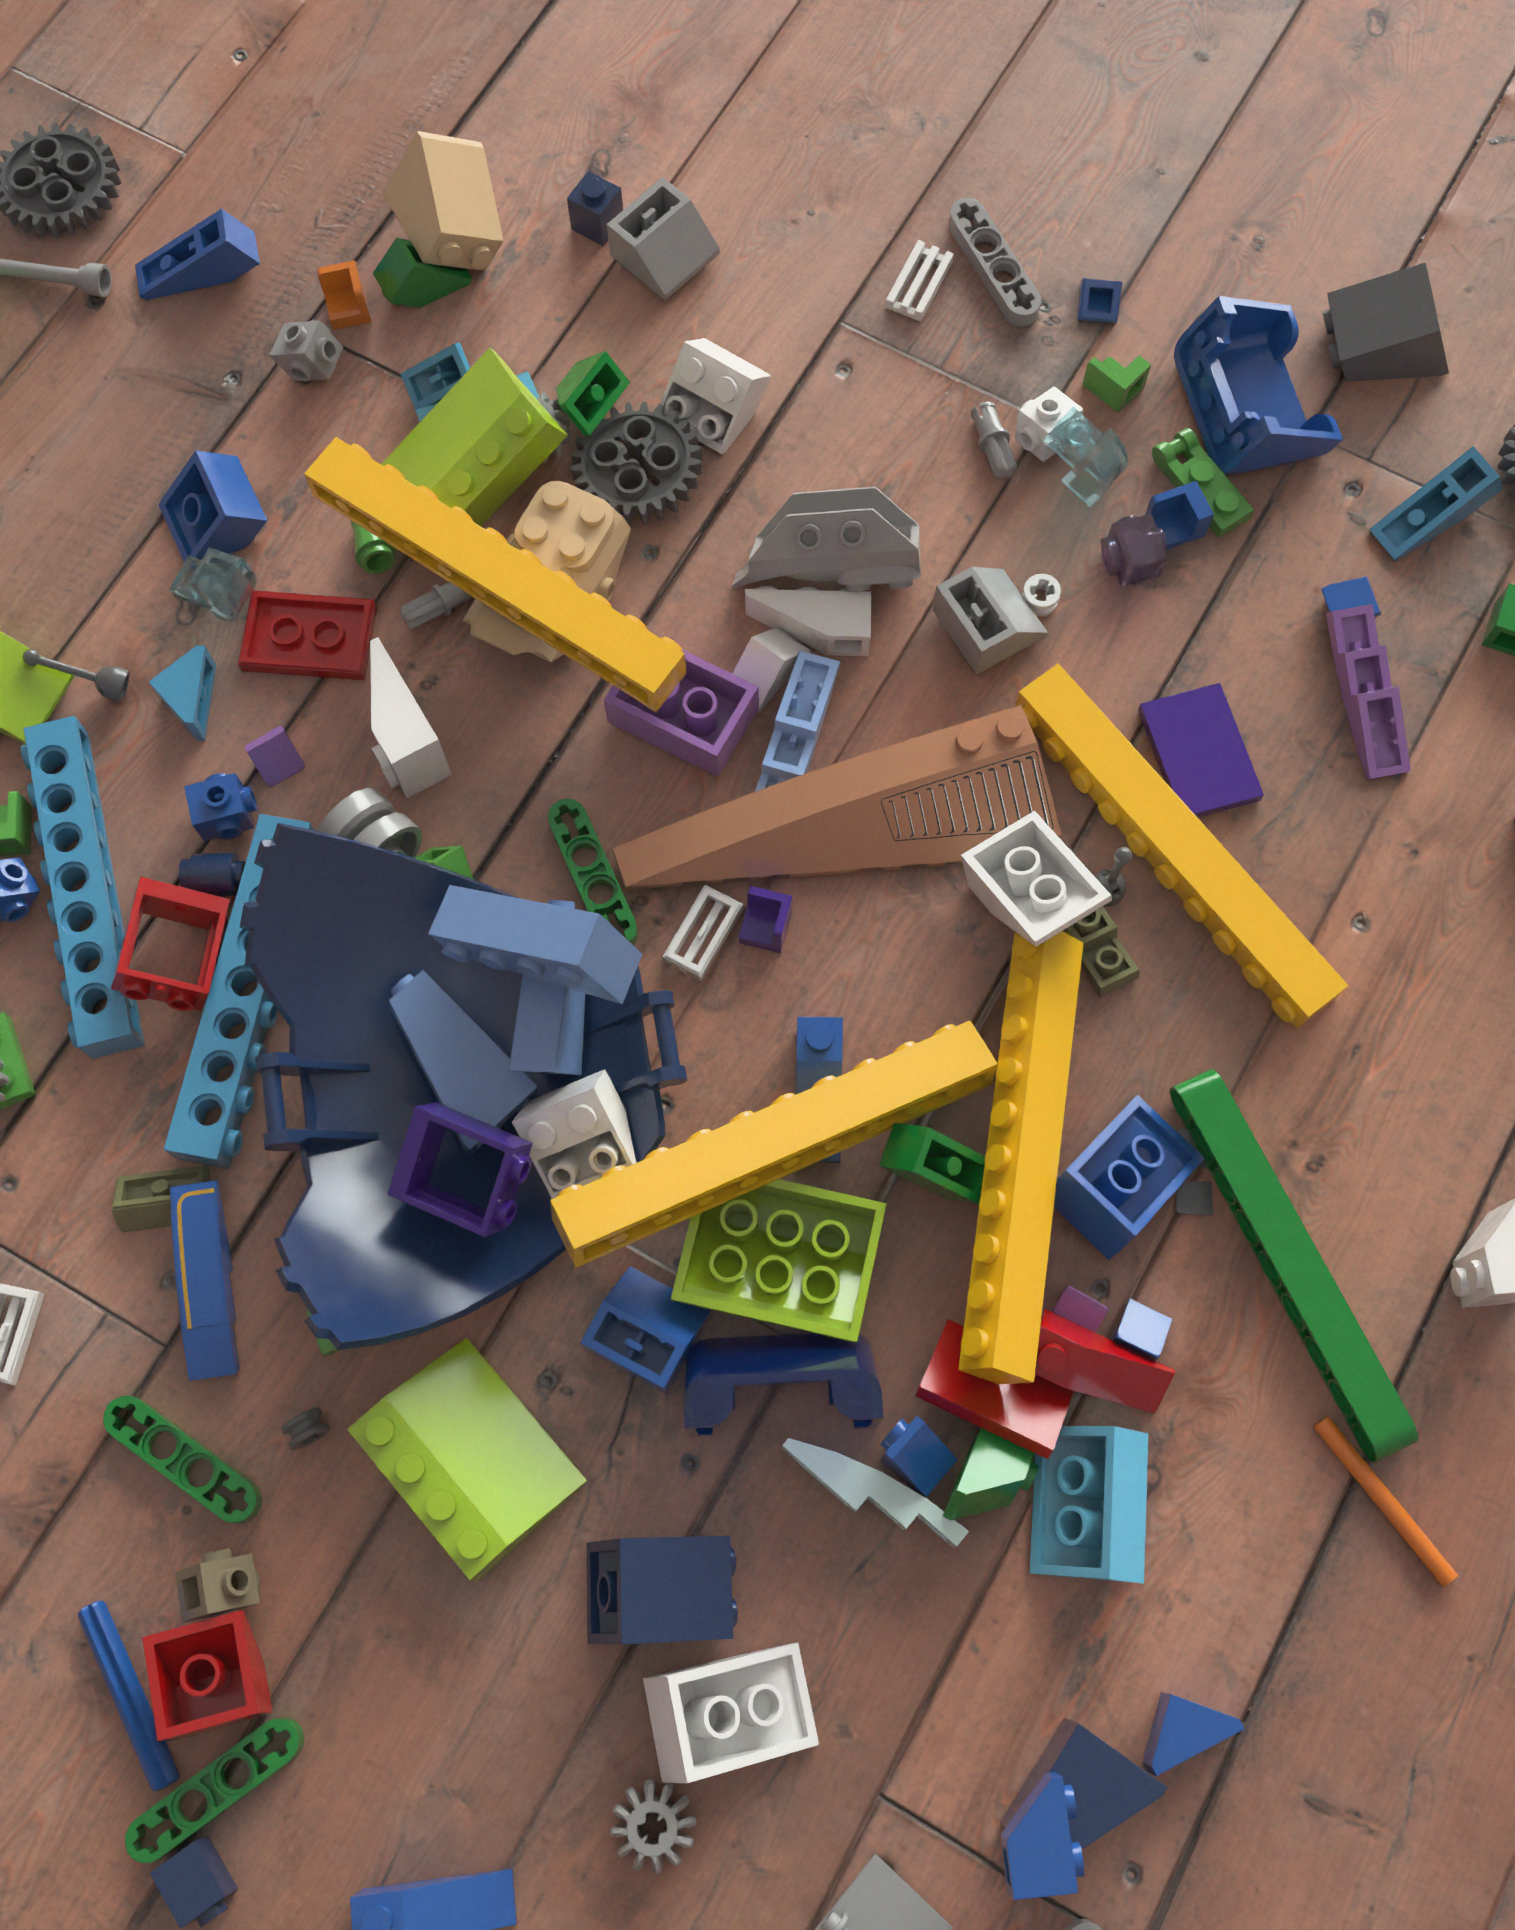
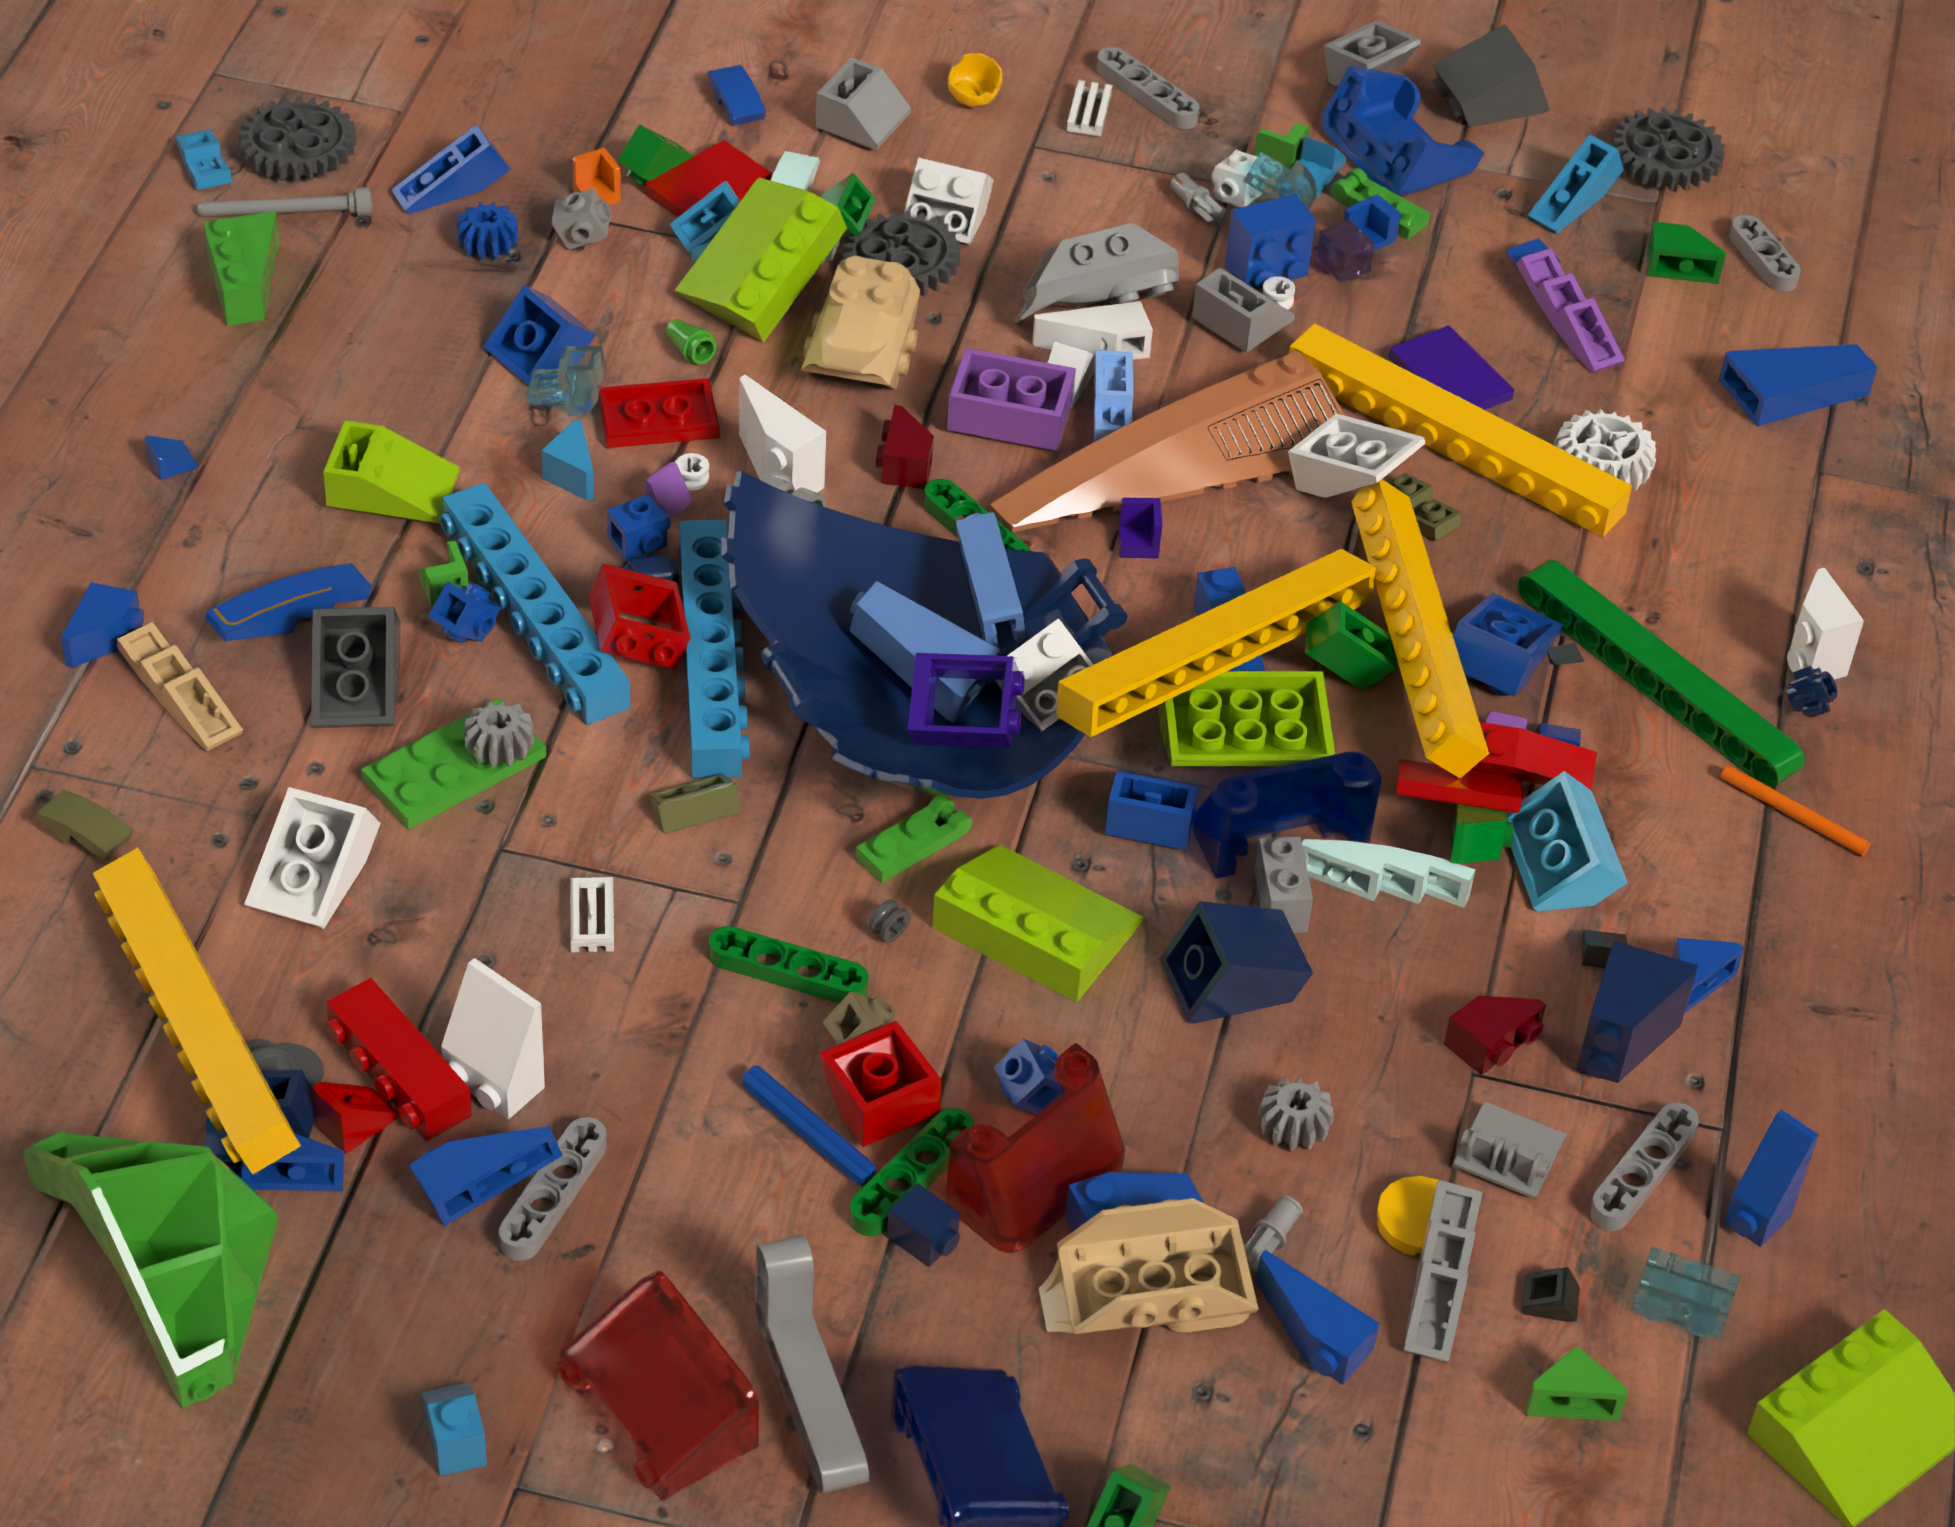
camera: 20 degrees left, 25 degrees down
(109, 681) = (498, 464): dark grey hinge -> none
(203, 1280) = (759, 839): blue slope -> none
(207, 346) = (487, 231): none -> blue gear
(294, 1883) = (1019, 1183): none -> clear red windscreen
(322, 719) = (694, 462): none -> white bush
(376, 1704) = (1029, 1076): none -> blue brick
(433, 604) = (772, 367): light grey axle -> none
(446, 201) = (669, 97): tan slope -> none
(472, 310) = (701, 174): none -> red tile
(497, 573) = (831, 315): yellow brick -> none
(537, 941) = (977, 522): medium blue wedge -> none
(538, 195) = (737, 93): none -> blue slope
(546, 753) = (907, 451): none -> dark red slope
(554, 330) = (796, 170): none -> light aqua slope
(594, 205) = (794, 93): dark blue brick -> none
(685, 964) = (1095, 528): white tile -> none
(730, 1713) = (1324, 1030): white slope -> none
(749, 1486) = (1284, 879): none -> light grey brick
(799, 223) = (975, 80): none -> yellow hair
(915, 1758) = (1492, 1029): none -> dark red slope
(917, 1455) = (1413, 823): blue slope -> none
(1039, 1845) = (1617, 1004): blue slope -> none
(1048, 531) = (1270, 241): none -> blue brick
(1091, 1655) = (1597, 947): none -> pearl dark grey slope
(1099, 300) = (1245, 99): blue slope -> none
(1112, 878) = (1416, 464): dark grey hinge -> none
(1145, 416) = (1322, 161): none -> dark azure slope
(1256, 263) = (1369, 47): none -> light grey slope
(1339, 885) = (1610, 445): none -> white gear
(1462, 1337) = (1812, 691): none -> dark blue gear

